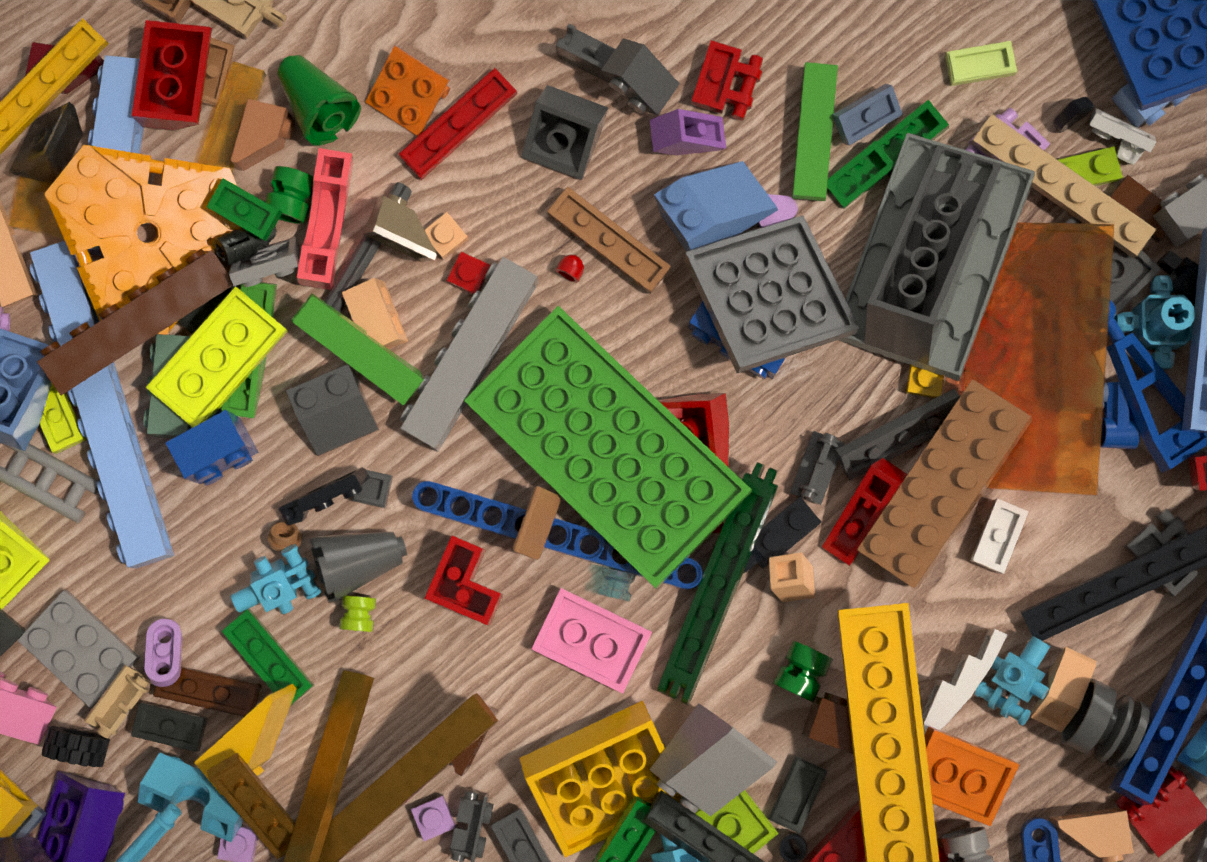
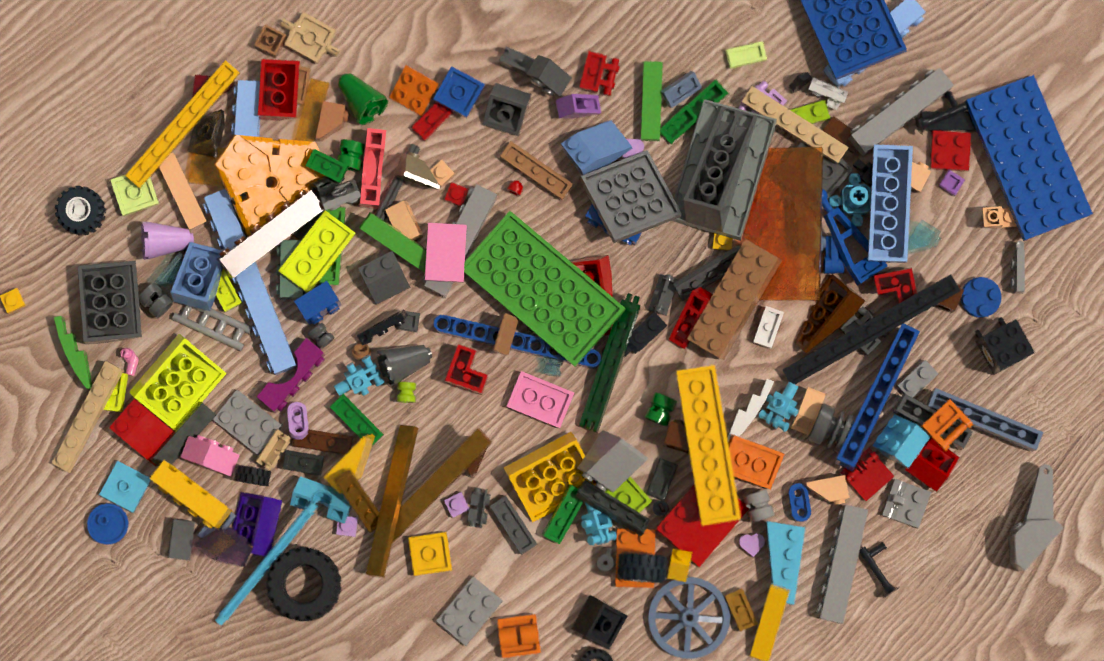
camera: 10 degrees left, 0 degrees up
(189, 541) = (276, 395): none -> magenta arch
(216, 505) = (321, 336): none -> dark grey wheel
(441, 372) = (445, 252): none -> bright pink tile
(483, 97) = (459, 92): none -> blue plate
(792, 577) = (651, 357): light nougat panel -> none
(1104, 523) = (835, 307): none -> reddish brown wedge

